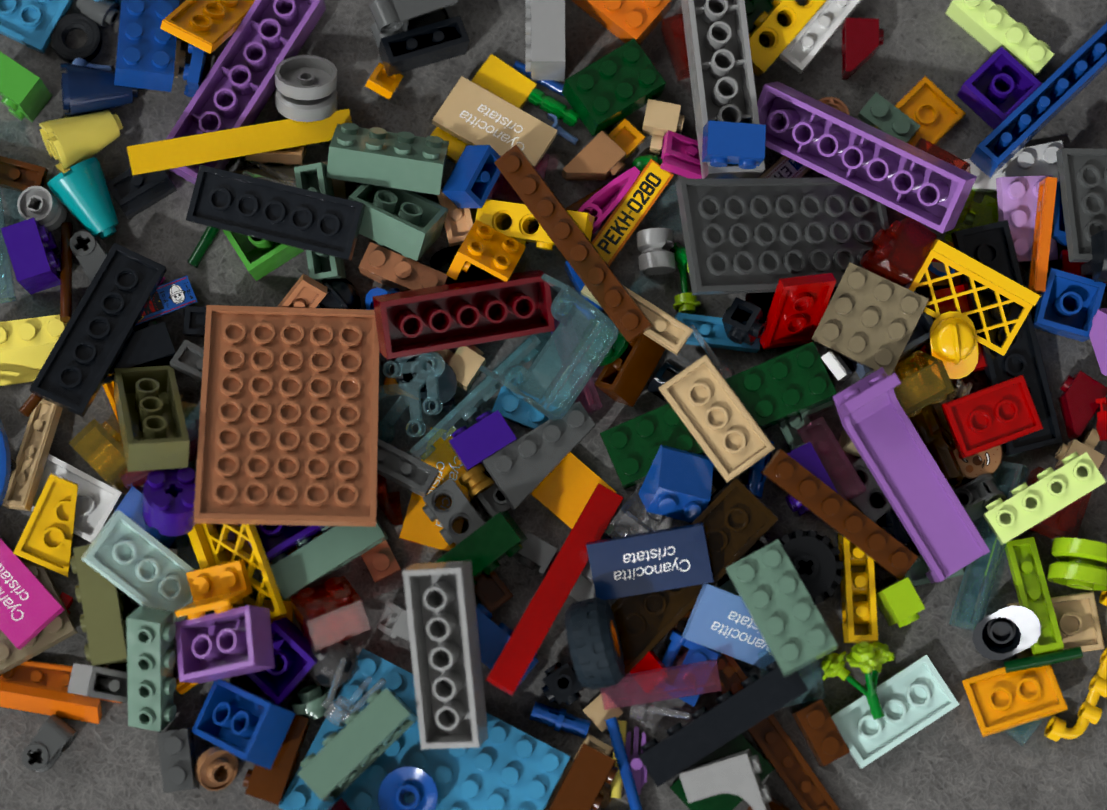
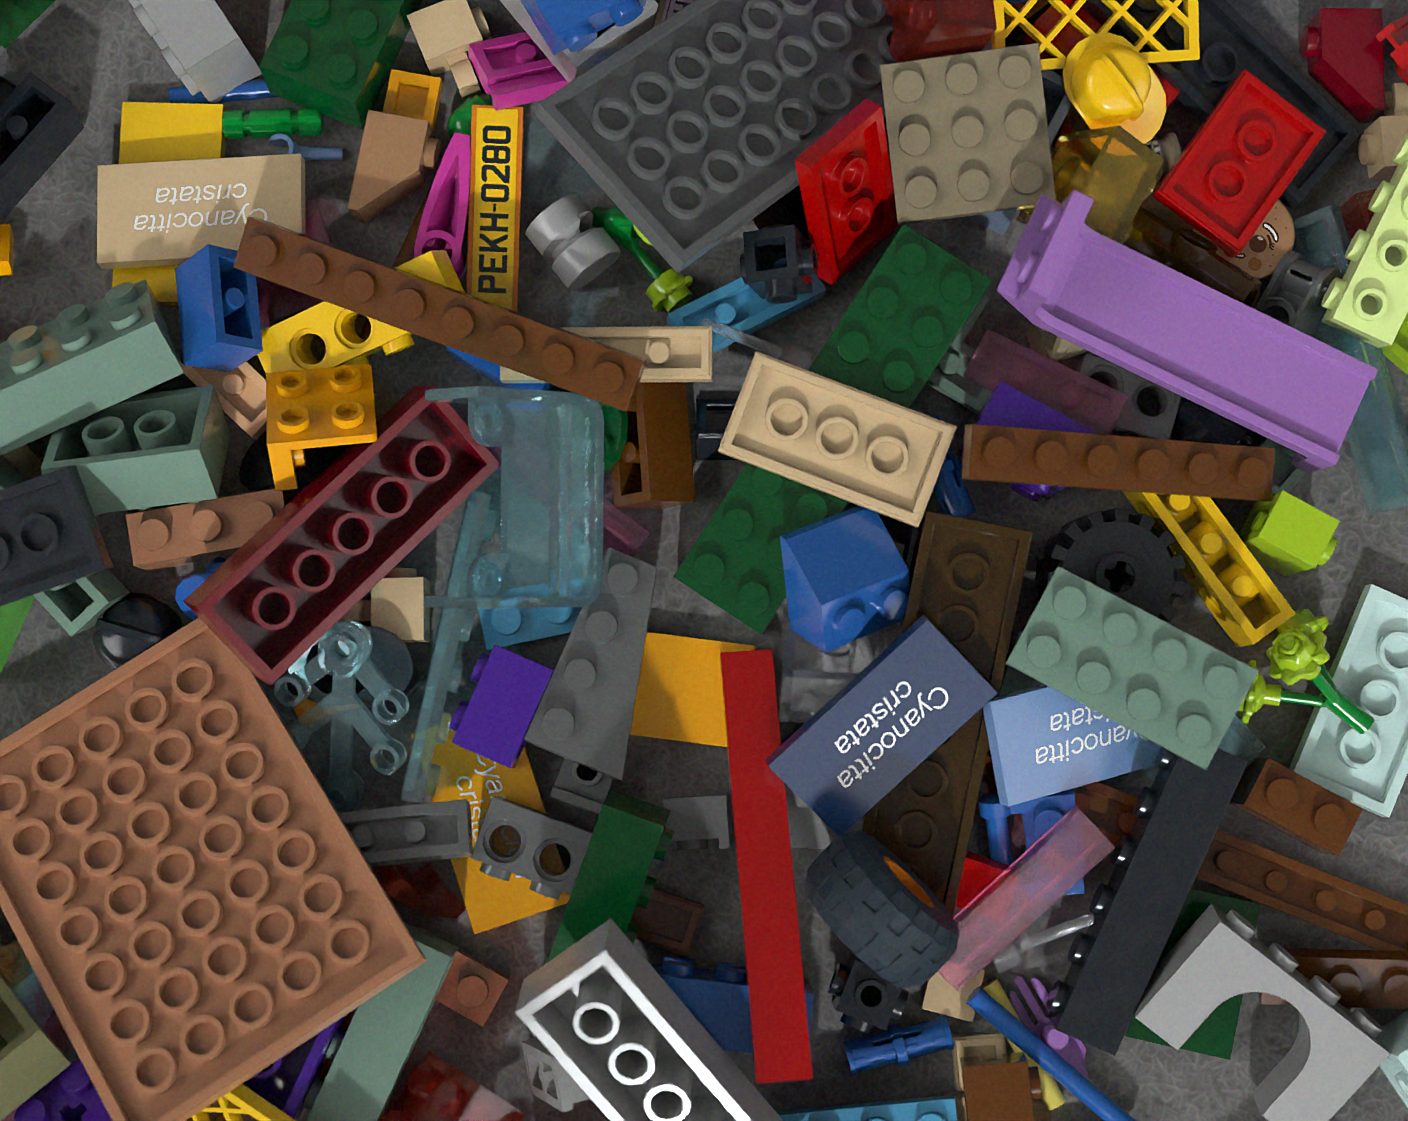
camera: 30 degrees left, 5 degrees up
(304, 294) = (78, 662): nougat plate -> none
(476, 480) = (534, 773): pearl gold wheel -> none
(837, 366) = (960, 238): white tile -> none

